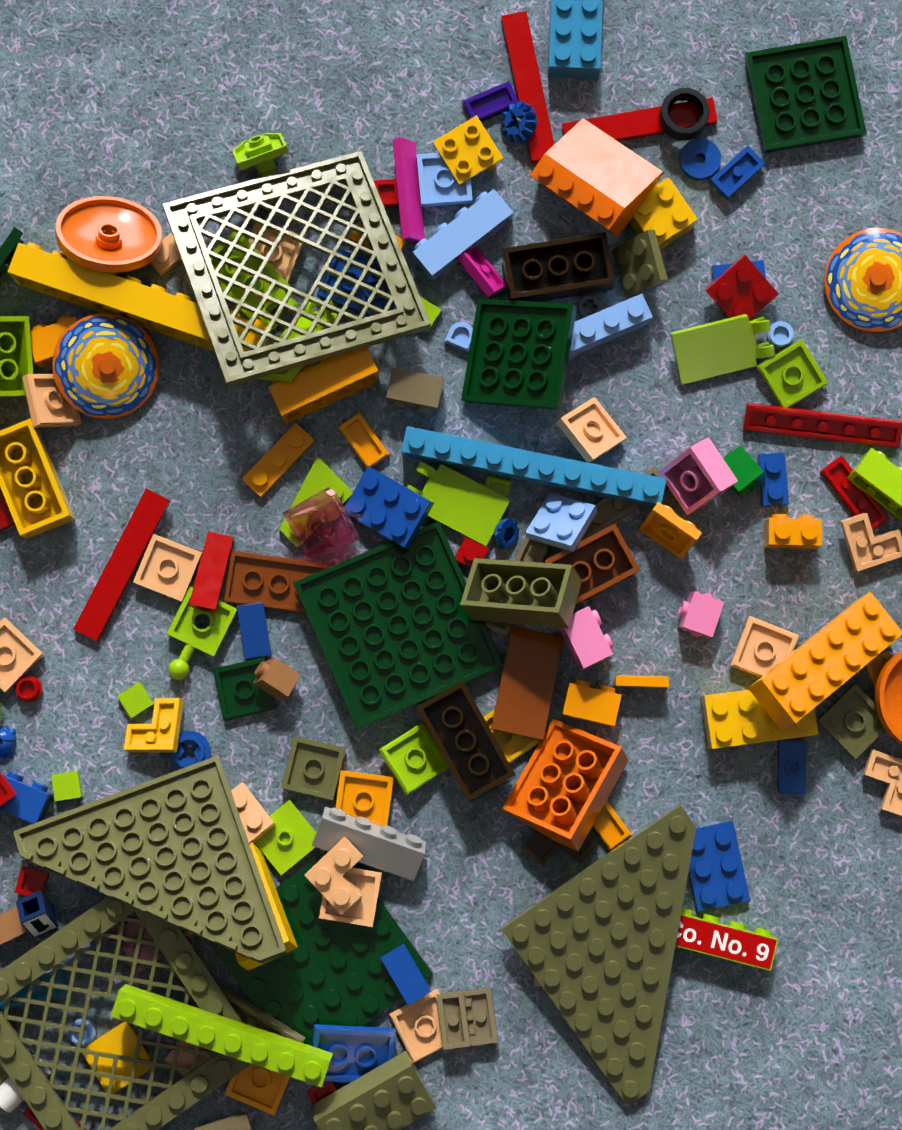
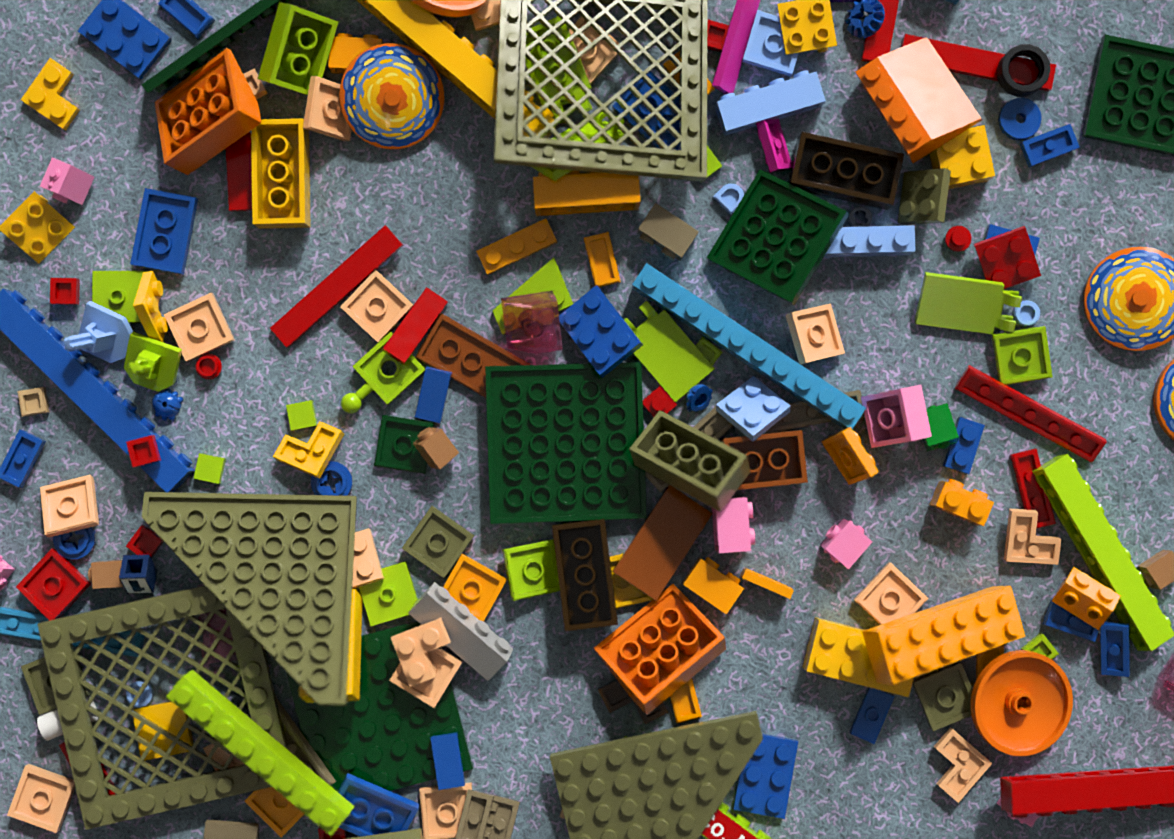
camera: 20 degrees right, 5 degrees up
(688, 290) = (958, 238): none -> red plate

